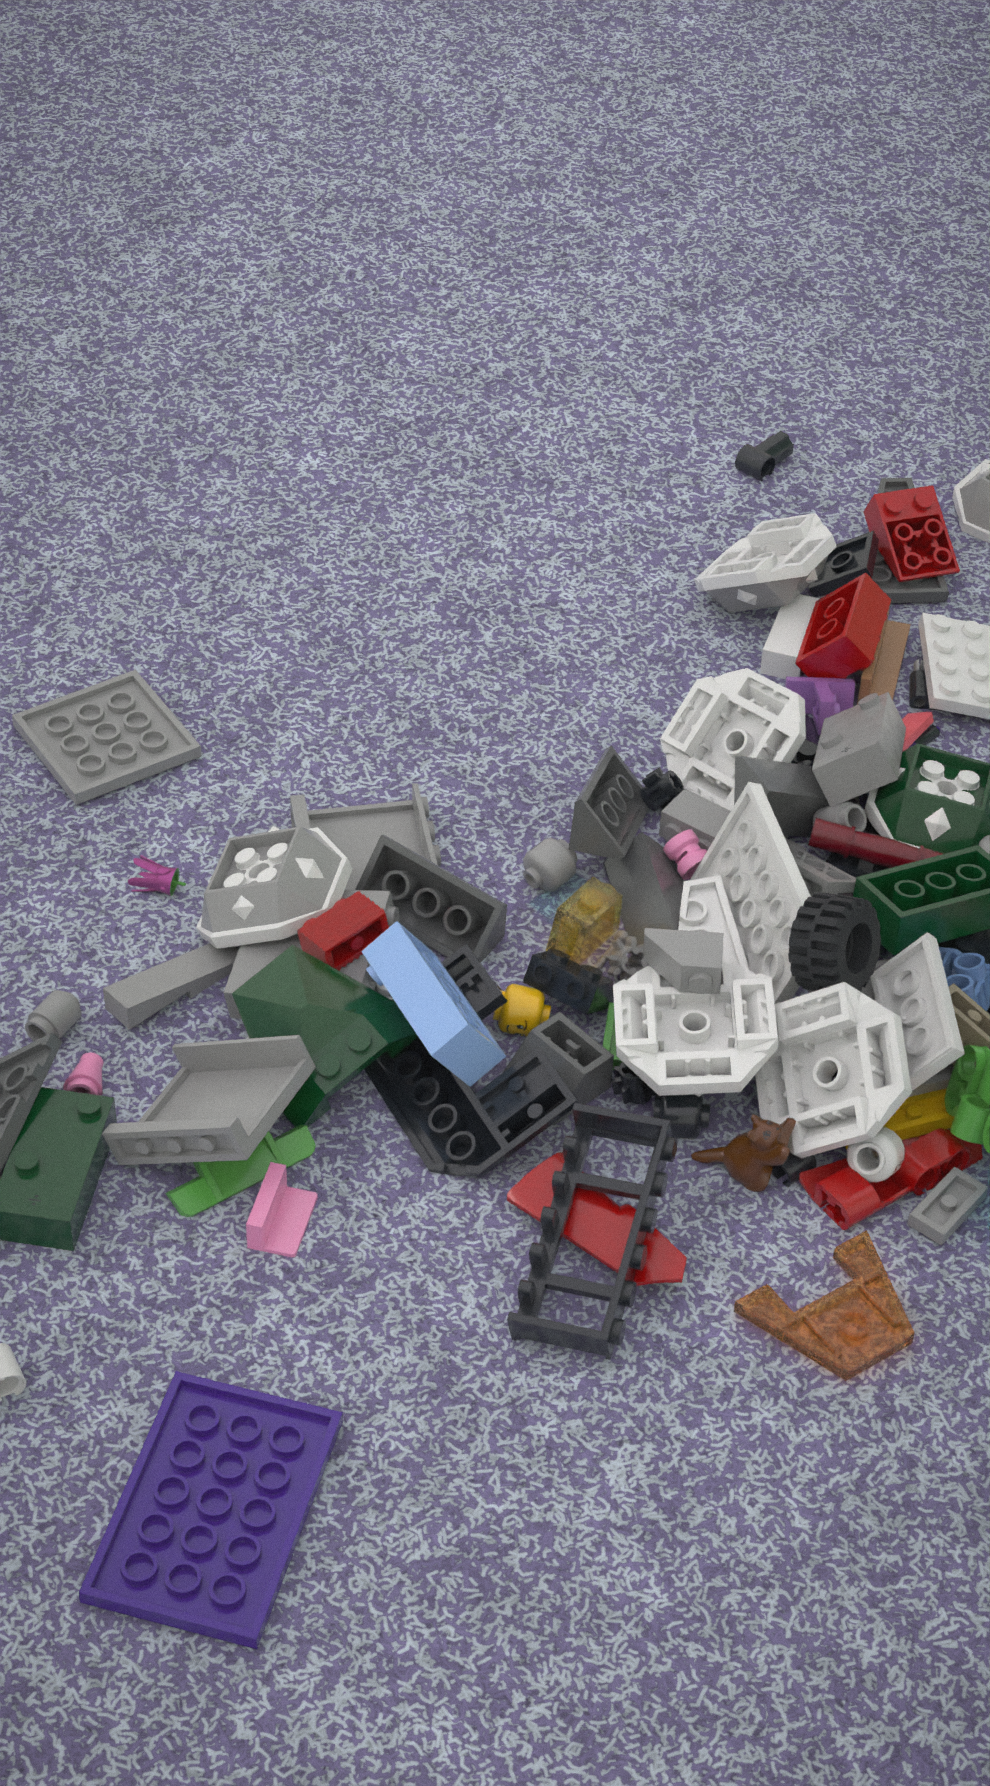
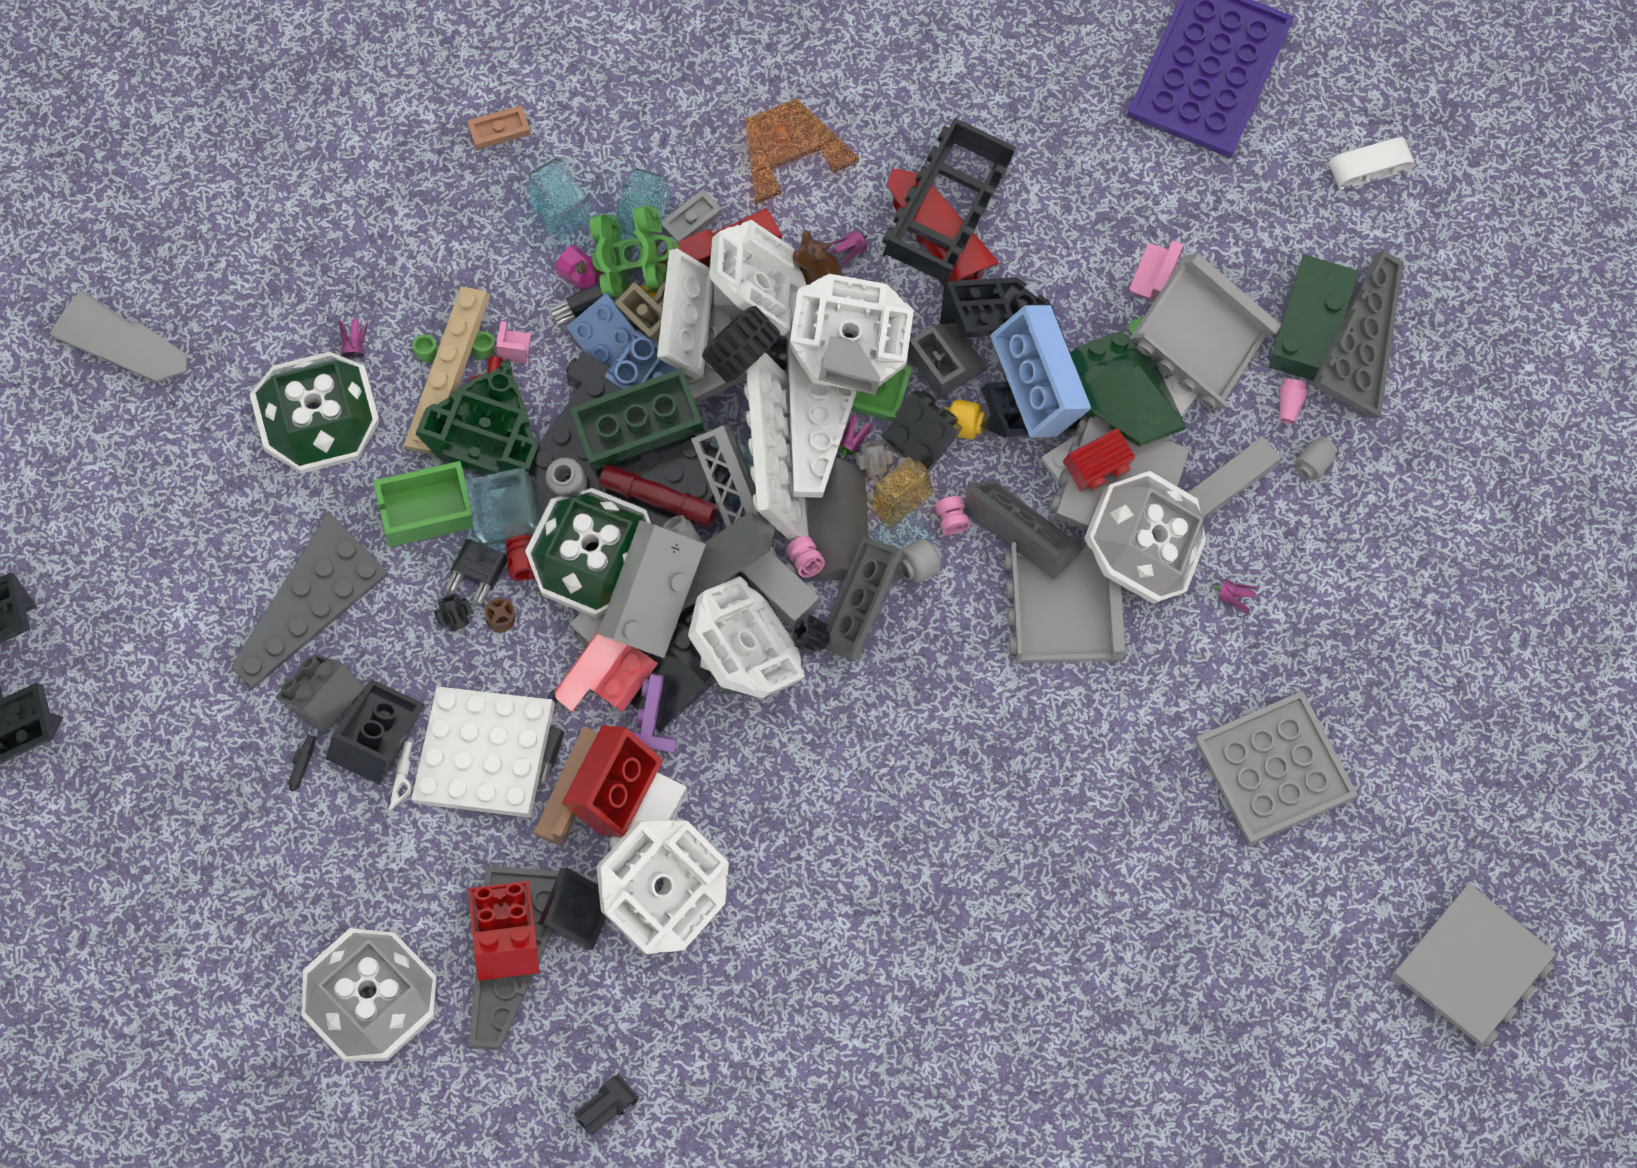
camera: 175 degrees left, 25 degrees up
(520, 917) = (952, 515): none -> bright pink wheel
(711, 1197) = (852, 241): none -> flat silver piece

